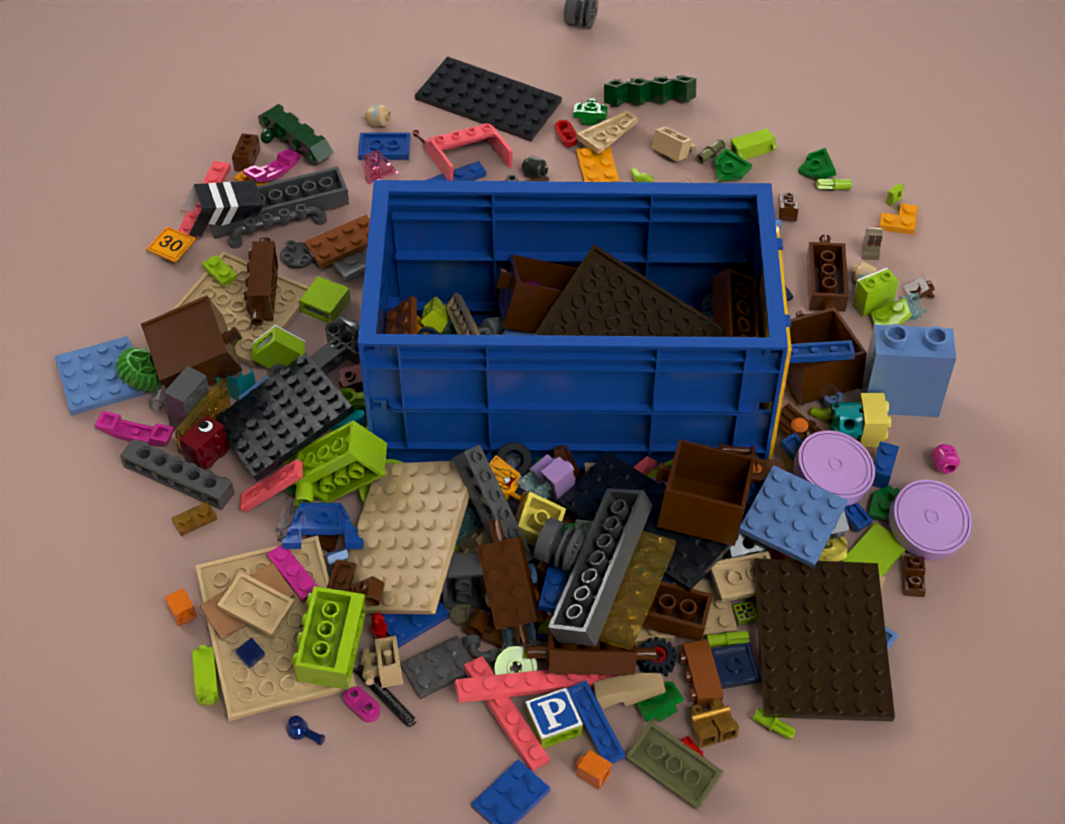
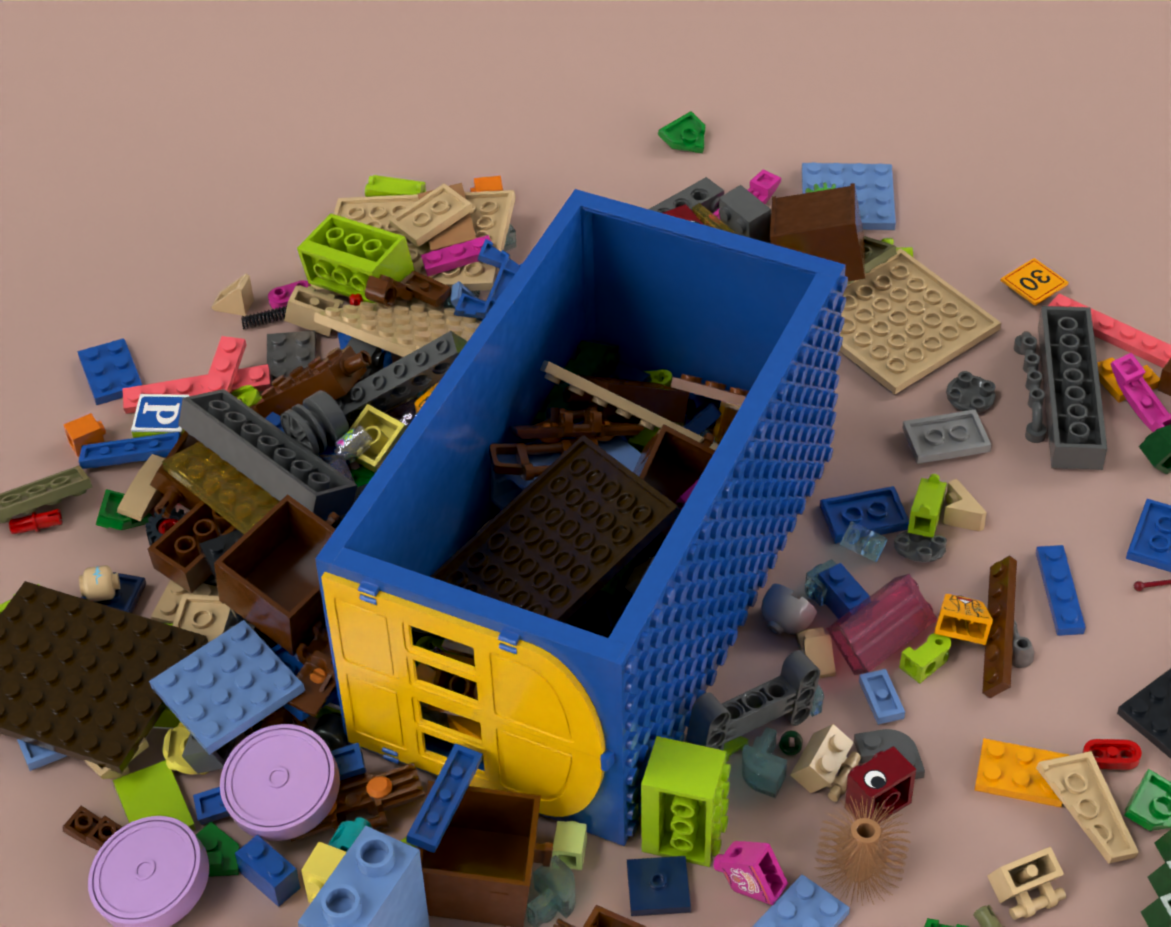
camera: 115 degrees right, 5 degrees down
(53, 499) = (684, 133): none -> green plate
(219, 271) = (962, 308): lime plate -> none
(223, 203) = (1068, 314): black sticker -> none
(250, 653) = (386, 213): clear blue plate -> none
(261, 281) = (911, 325): reddish brown brick -> none
(301, 730) = (294, 241): clear blue bar -> none
(324, 300) = (870, 393): lime piece -> none
(339, 242) = (966, 432): dark orange plate -> none
(377, 167) = (1101, 500): clear pink wing -> none
(387, 739) = (236, 297): none -> tan slope
(436, 145) = (1131, 604): coral windscreen -> none
(534, 167) = (1043, 687): pearl dark grey head -> none
(559, 514) = (353, 443): none -> clear brick
(641, 177) = (974, 814): lime arm -> none
(701, 673) = (119, 555): dark orange brick -> none
(712, 724) = (55, 548): pearl gold hips -> none
(728, 639) = (148, 601): lime axle -> none
(740, 661) = (99, 583): none -> tan head

